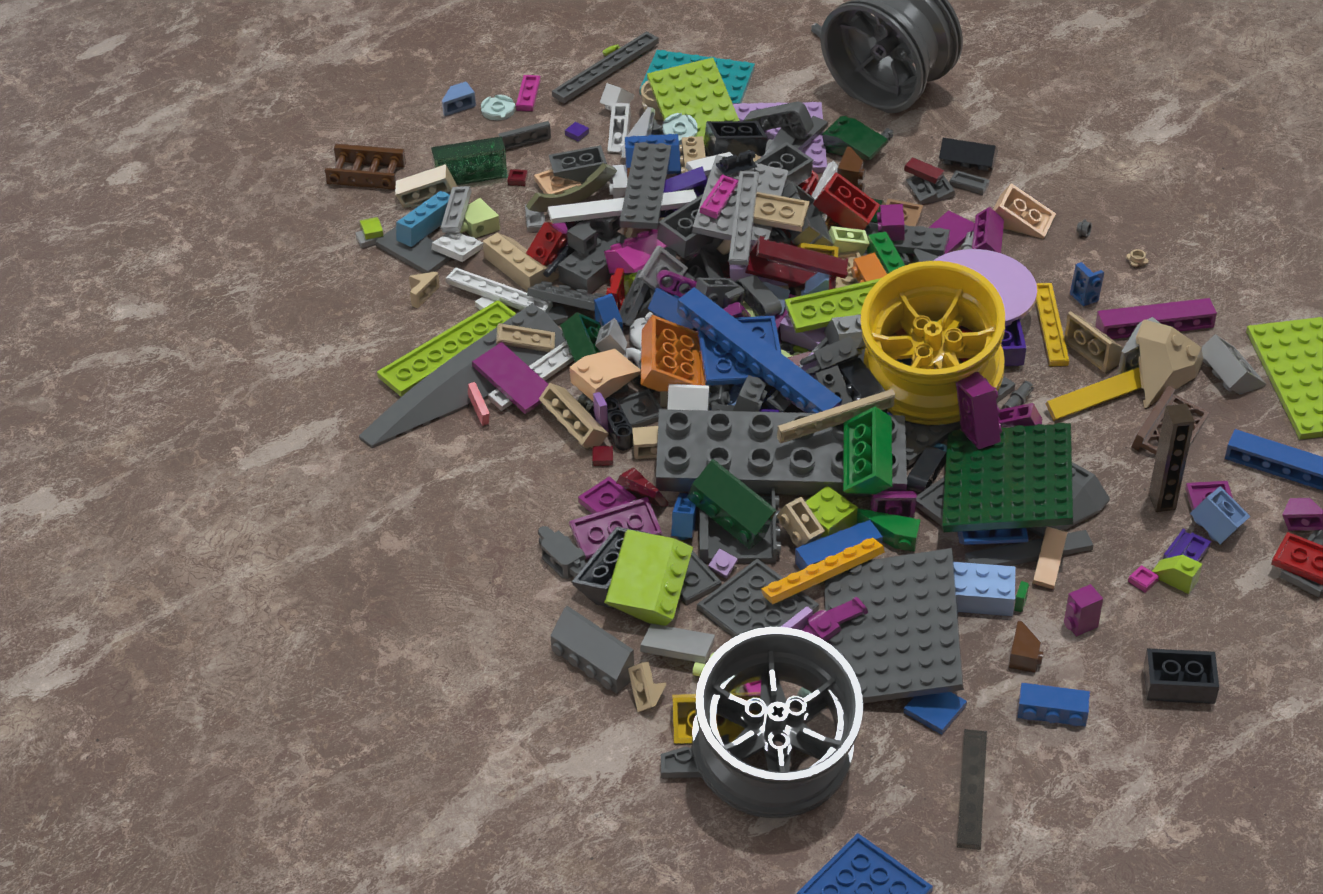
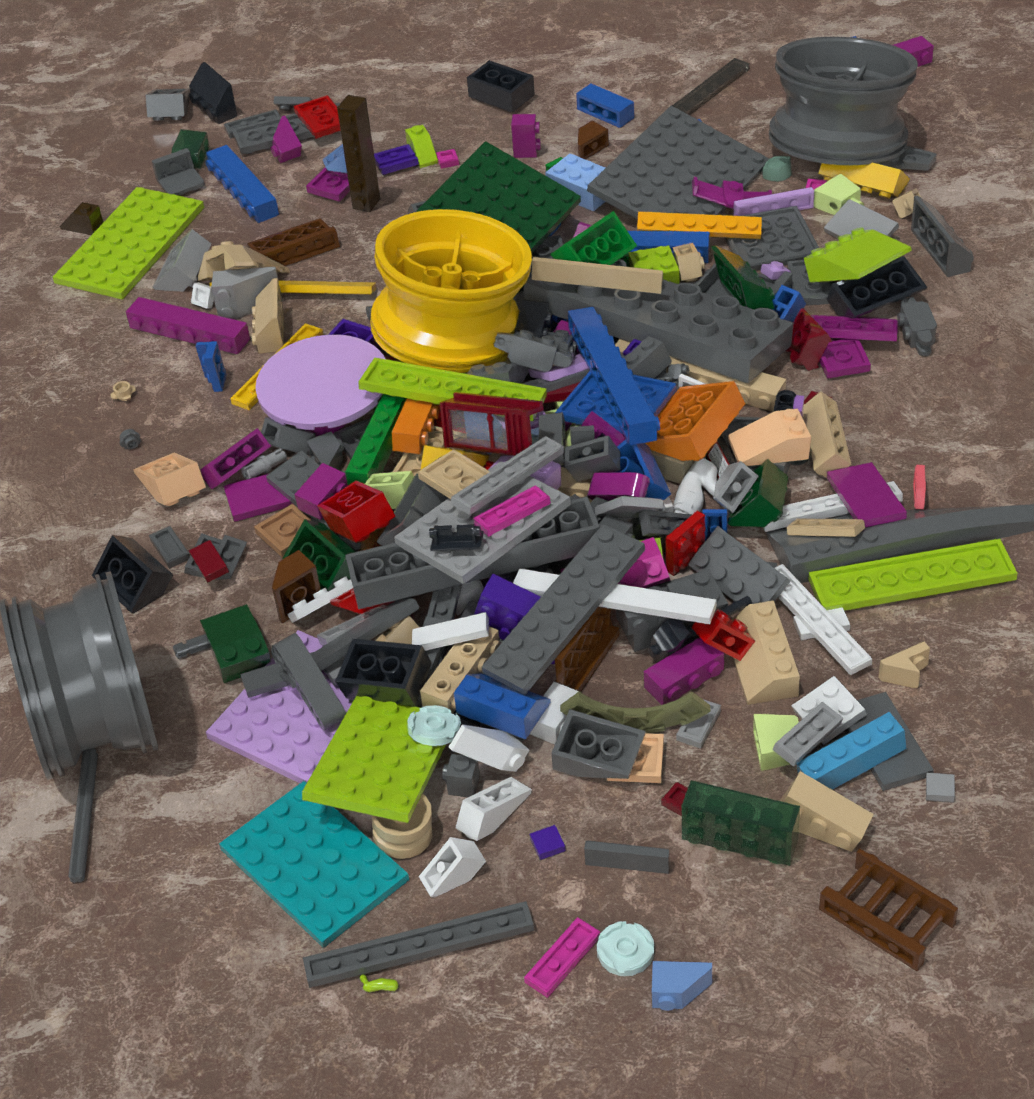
camera: 145 degrees left, 0 degrees up
(371, 228) = (928, 796): lime slope -> none

